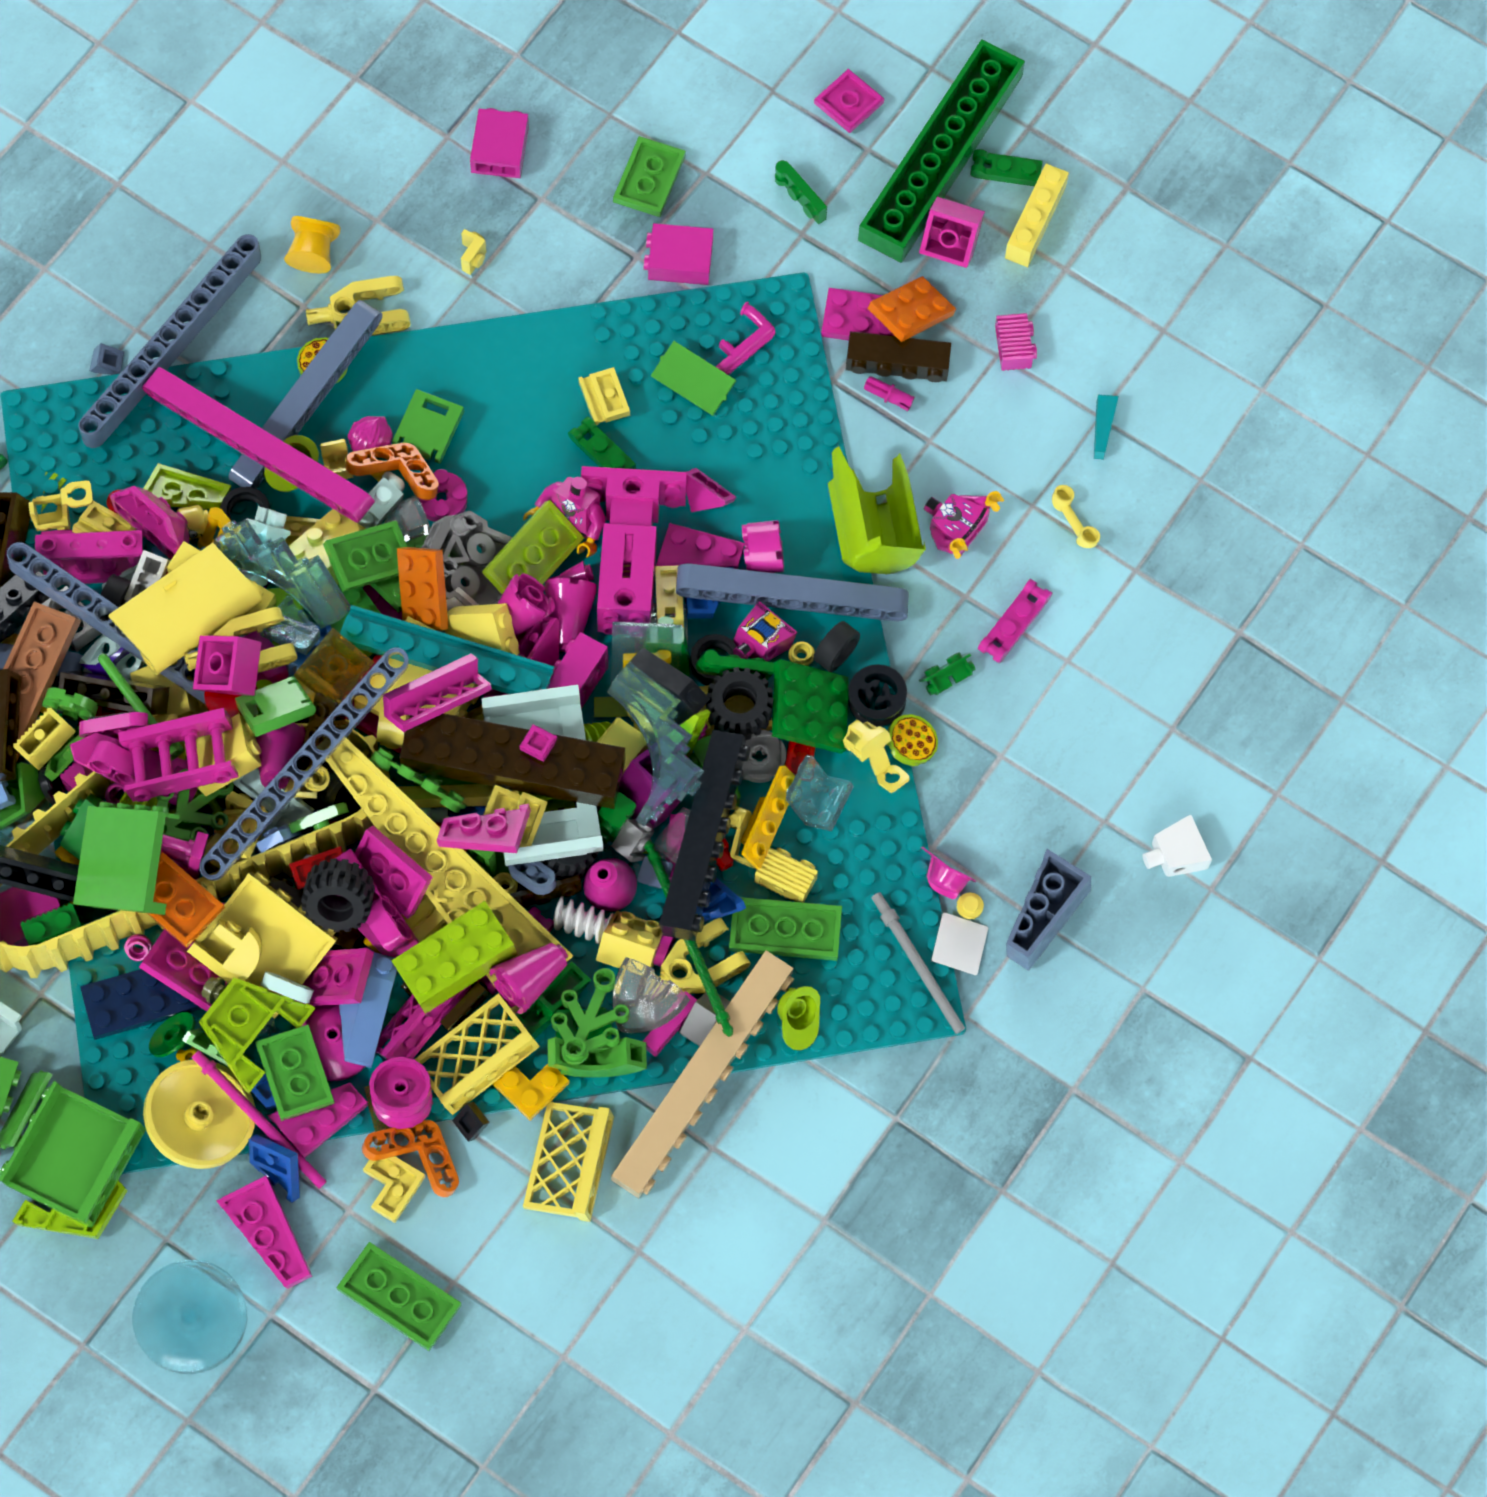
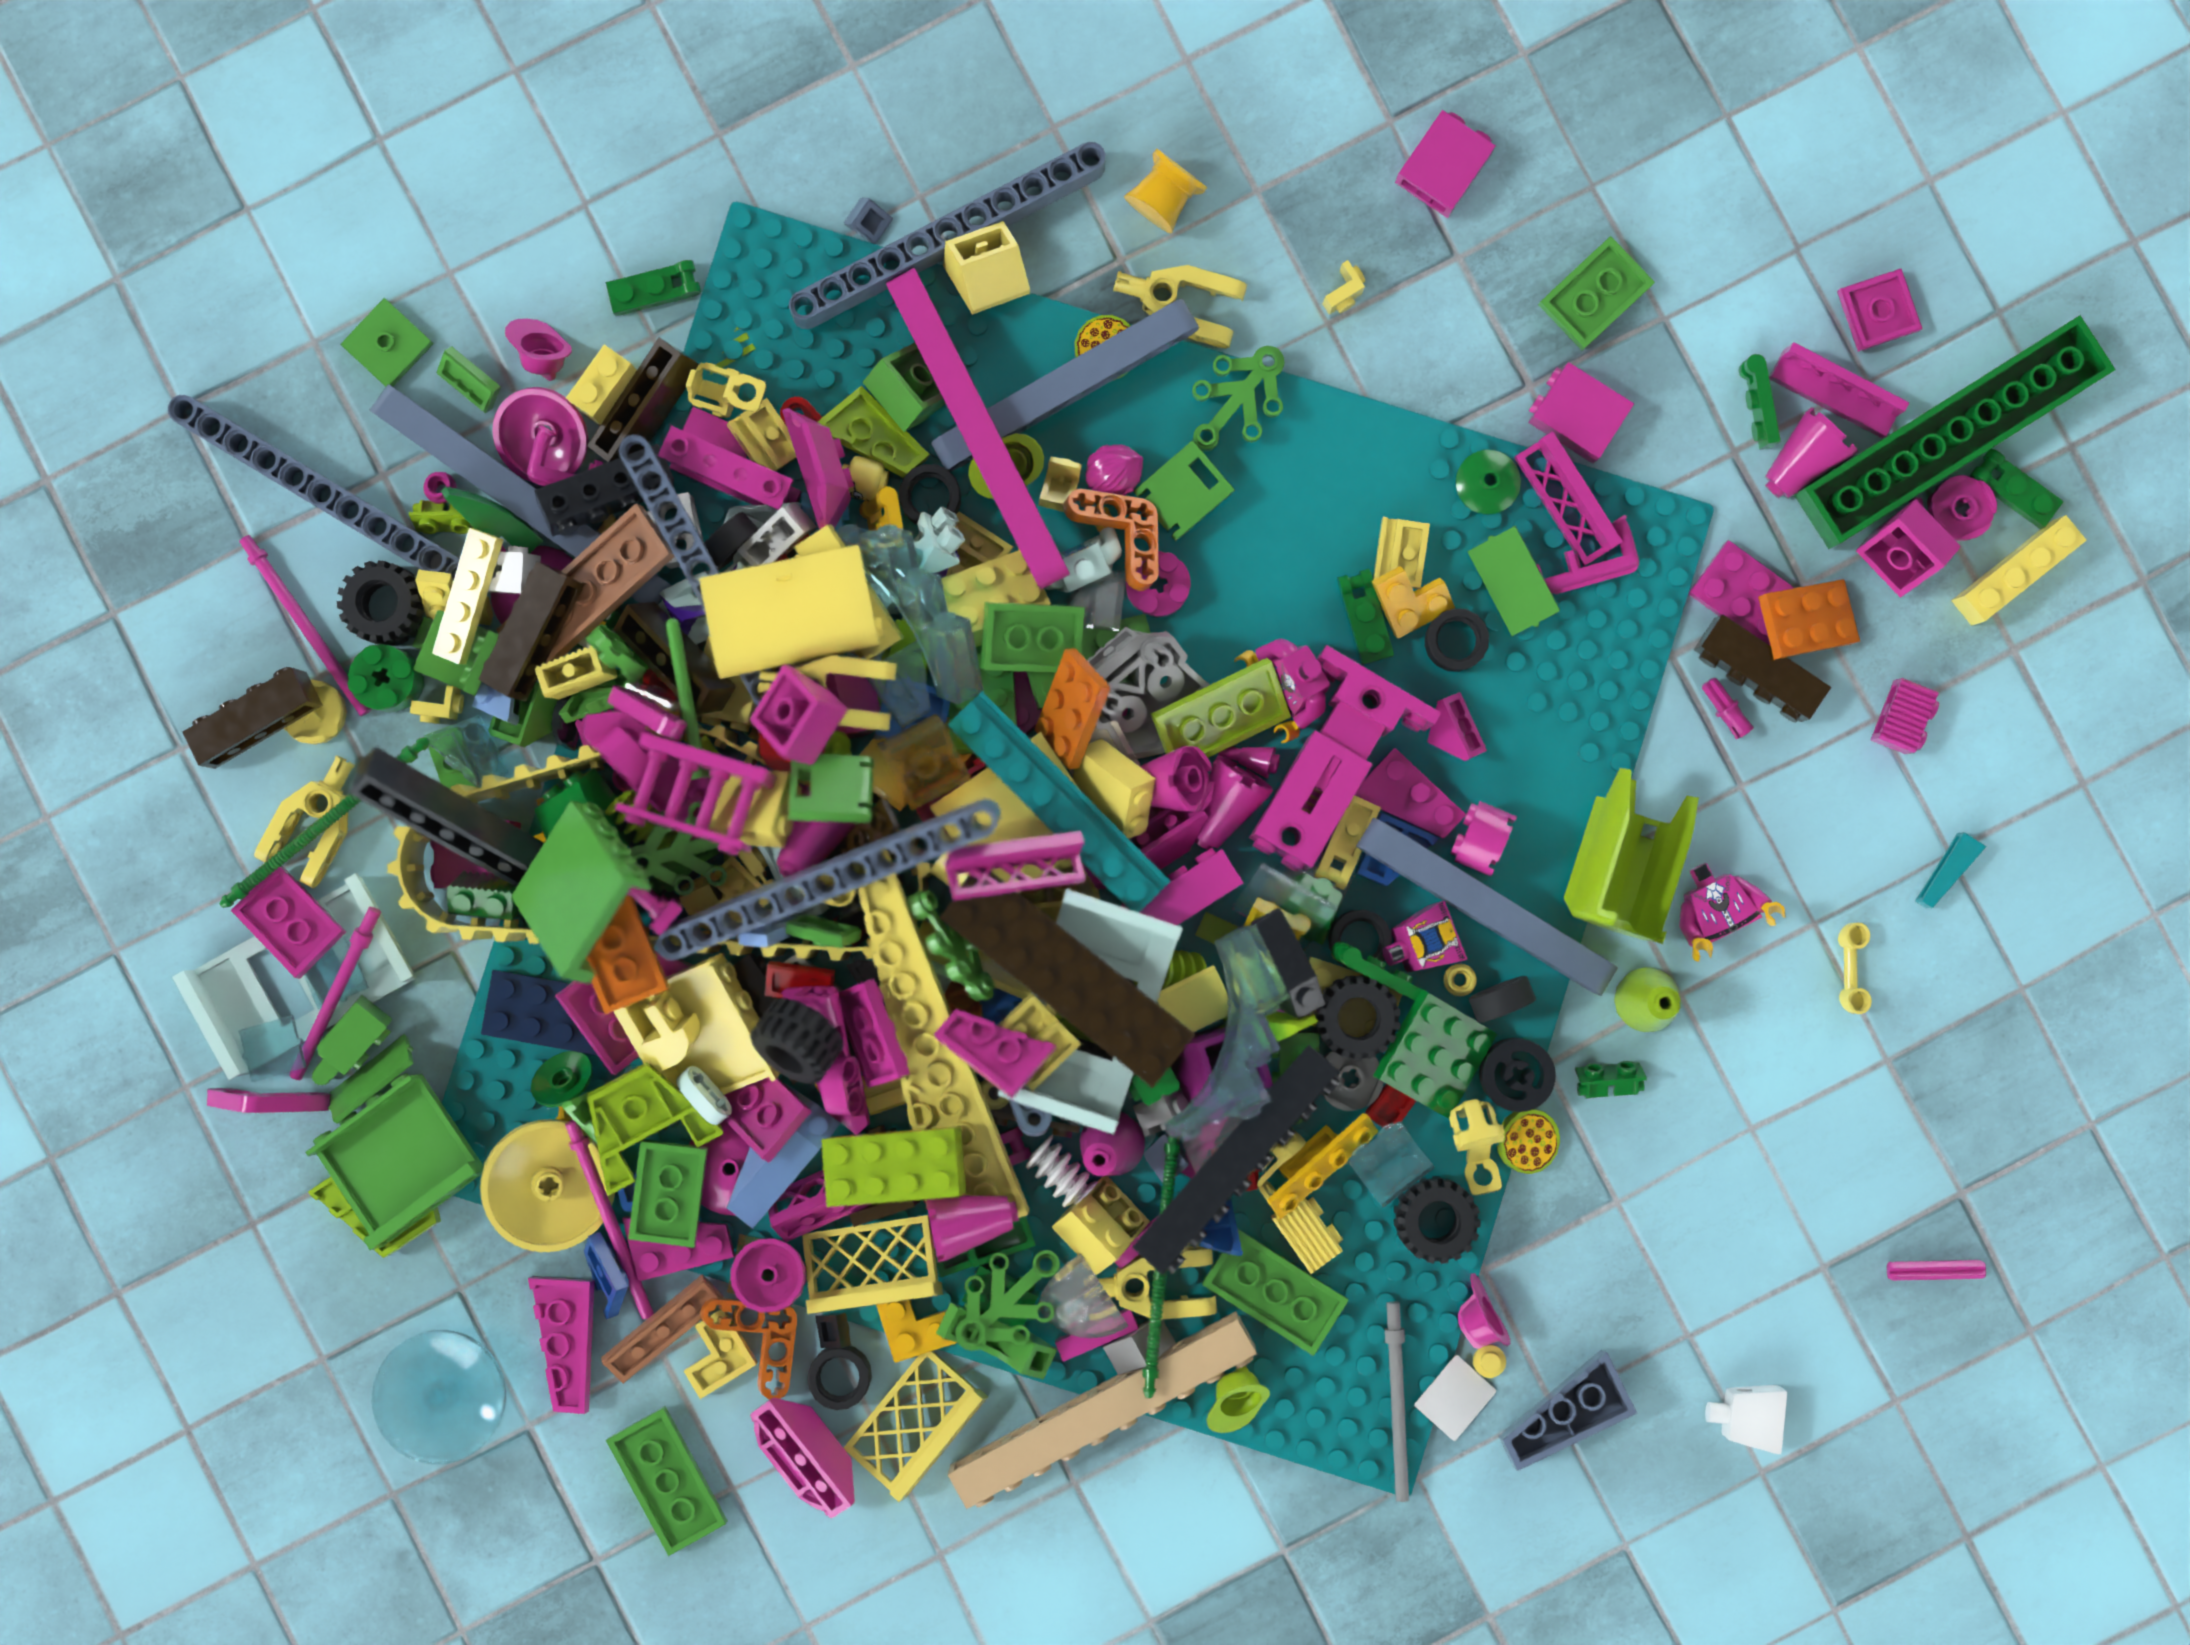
camera: 35 degrees right, 20 degrees up
(191, 448) = (905, 387): none -> bright green slope
(209, 346) = (986, 267): none -> light yellow slope
(213, 989) = (623, 1061): olive plate -> none
(337, 1189) = (660, 1330): none -> nougat tile
(434, 347) = (1241, 393): none -> bright green plant
(490, 1133) = (839, 1402): none -> black tyre
(493, 1220) = (805, 1454): none -> dark pink wedge
(538, 742) = (1099, 985): dark pink tile -> none
(628, 428) = (1407, 608): none -> yellow plate
(636, 335) = (1480, 496): none -> green dish
(671, 415) = (1475, 623): none -> black tyre
(703, 300) = (1579, 493): none -> dark pink fence
(848, 162) = (1837, 390): none -> dark pink fence
(850, 205) = (1808, 455): none -> dark pink cone
(880, 799) = (1463, 1229): none -> black tyre
(944, 605) = (1647, 999): none -> lime cone
(975, 183) = (1968, 490): none -> dark pink plate
(1015, 621) = (1718, 1055): dark pink plate -> none
(1250, 689) = (1936, 1270): none -> dark pink axle

